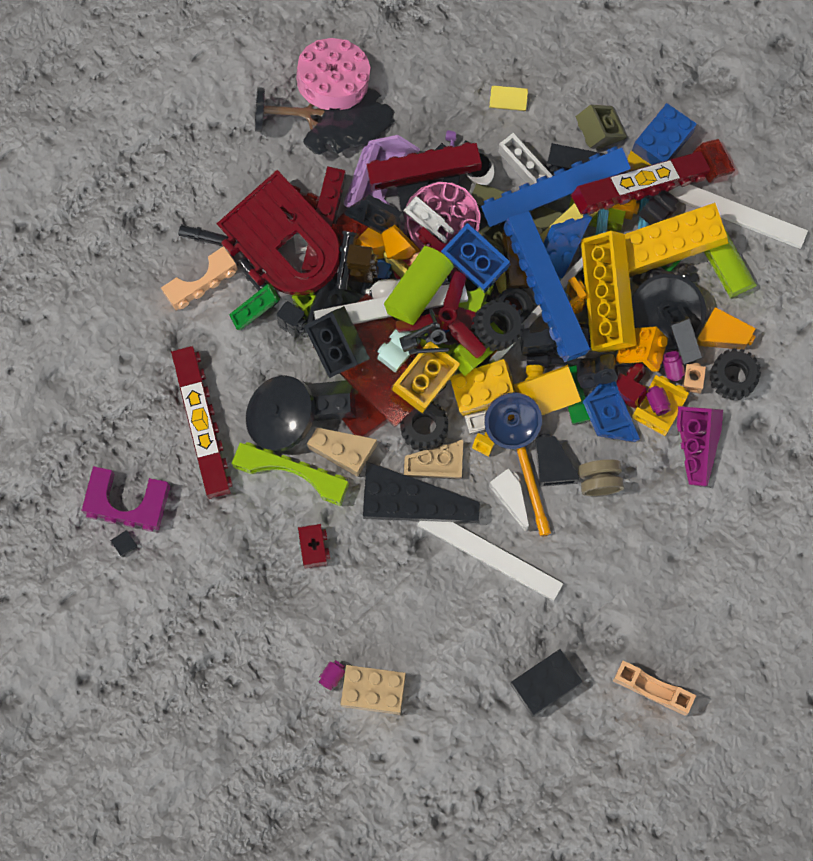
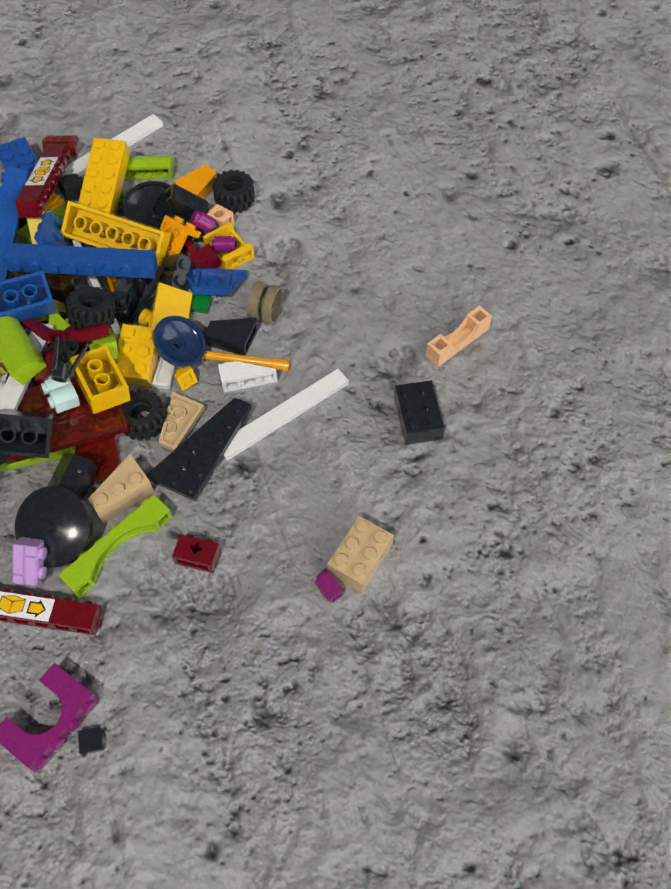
camera: 70 degrees left, 15 degrees down
(241, 411) = (29, 561): none -> lavender brick
(700, 438) = (269, 233): magenta wedge -> none

